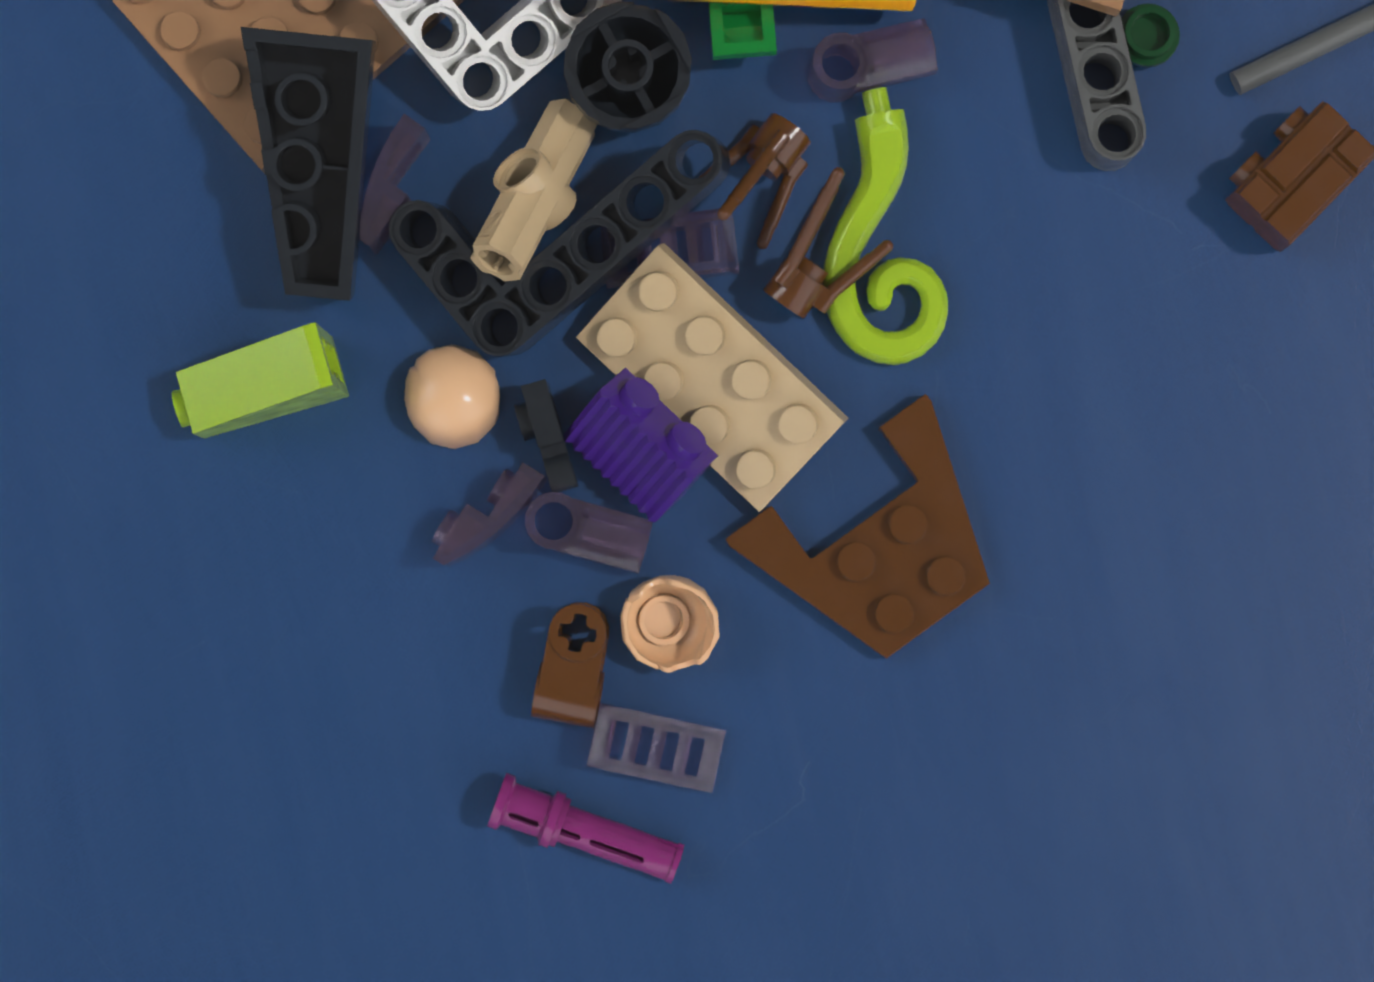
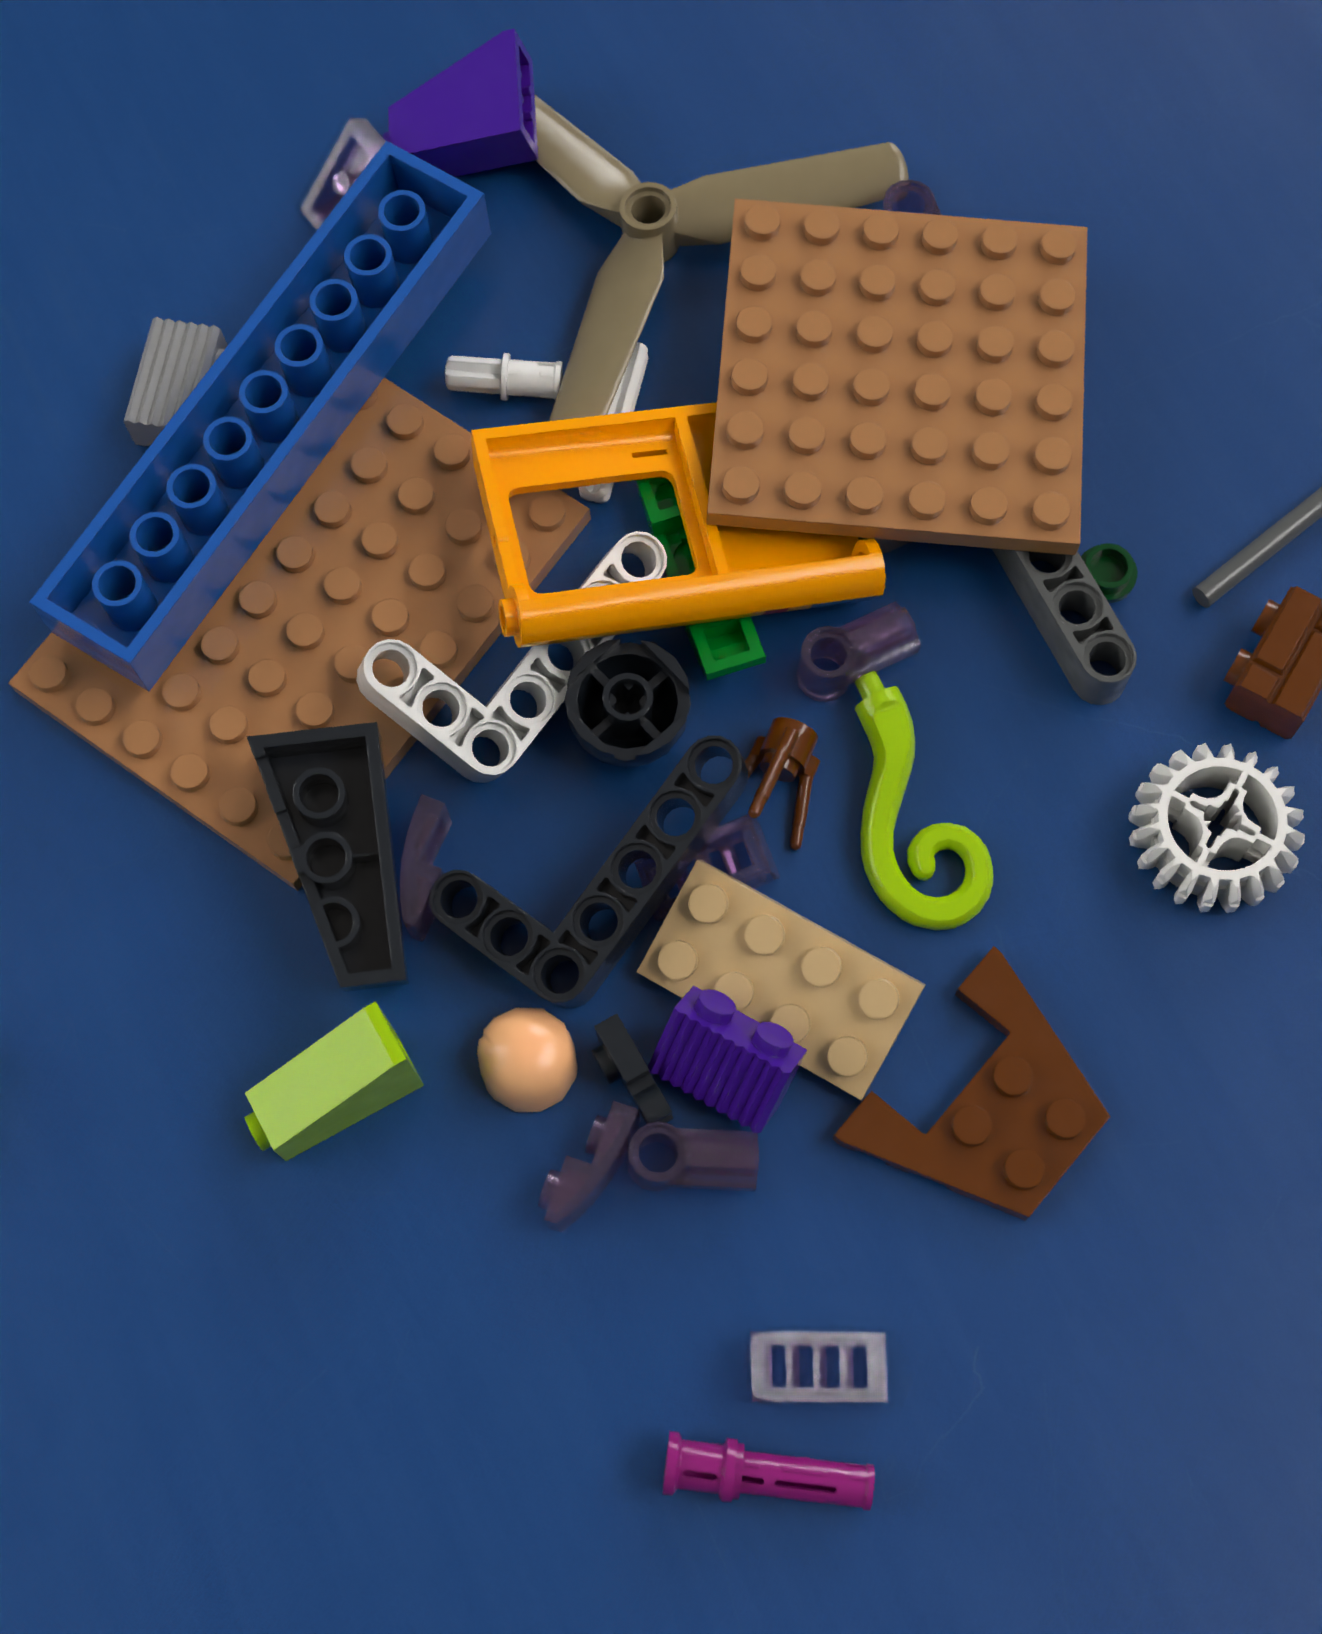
camera: 15 degrees left, 15 degrees down
(533, 191) = (563, 838): tan piece -> none
(569, 677) = (712, 1313): reddish brown piece -> none
(669, 623) = (801, 1231): light nougat hair -> none
(799, 280) = (842, 864): reddish brown plant -> none
(1197, 346) = (1240, 837): none -> white gear

